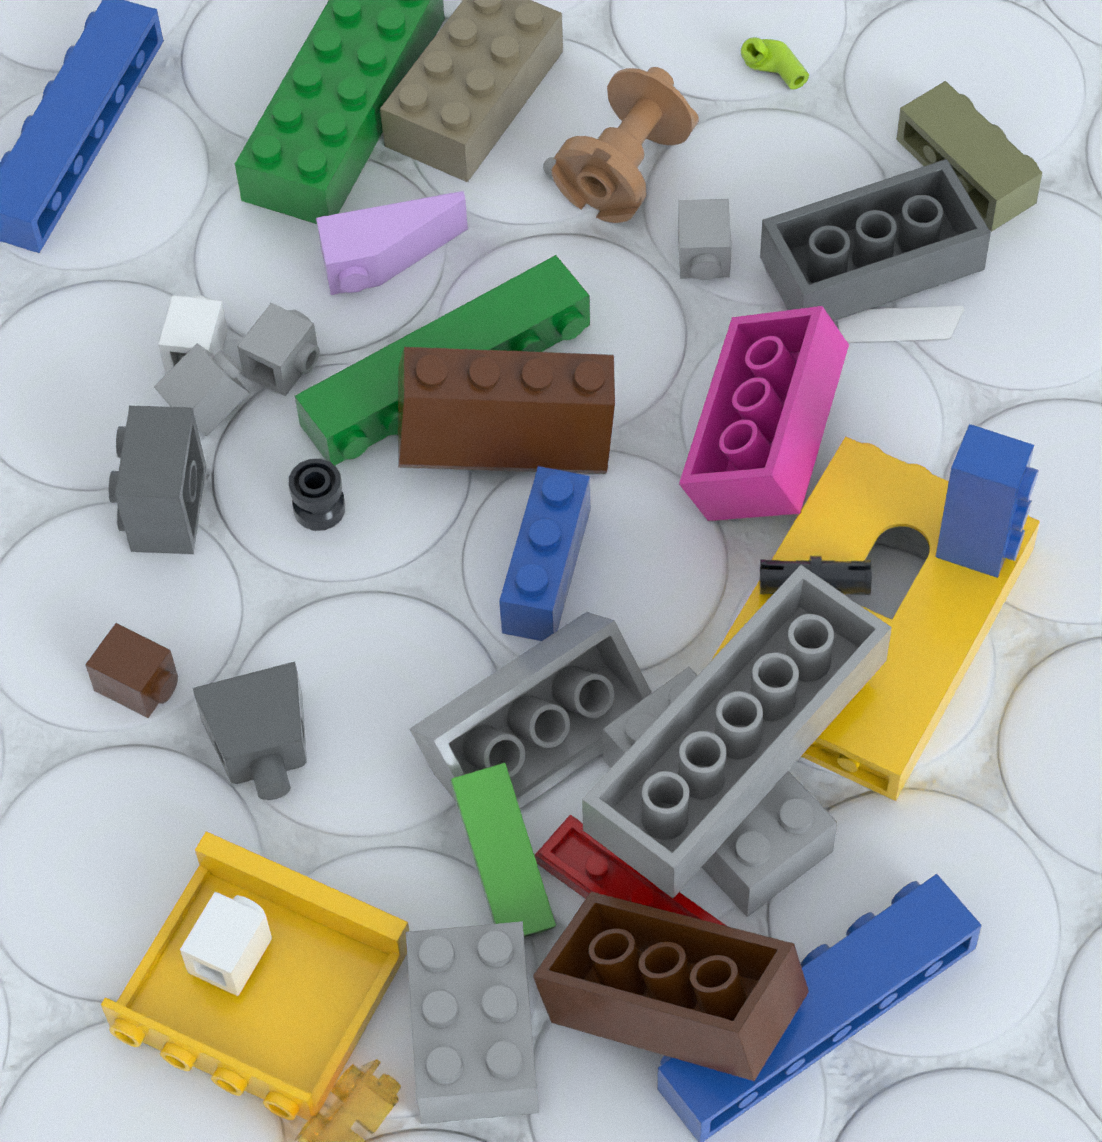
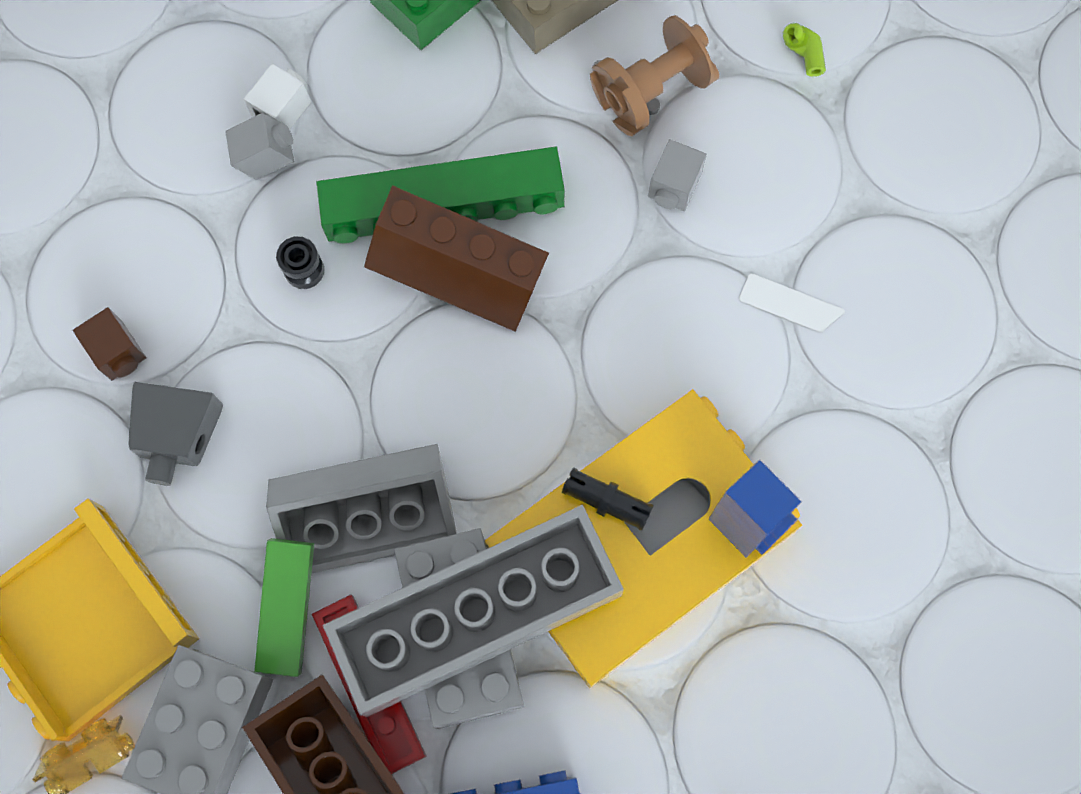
camera: 25 degrees right, 15 degrees up
(159, 479) = (191, 206): dark grey brick -> none
(227, 942) = (61, 589): white brick -> none
(279, 349) = (332, 134): light grey brick -> none
(380, 242) = (444, 79): lavender slope -> none
(545, 554) = (433, 382): blue brick -> none
(765, 414) = (642, 344): dark pink brick -> none
(876, 242) = (799, 236): dark grey brick -> none
(988, 165) = (911, 189): olive brick -> none

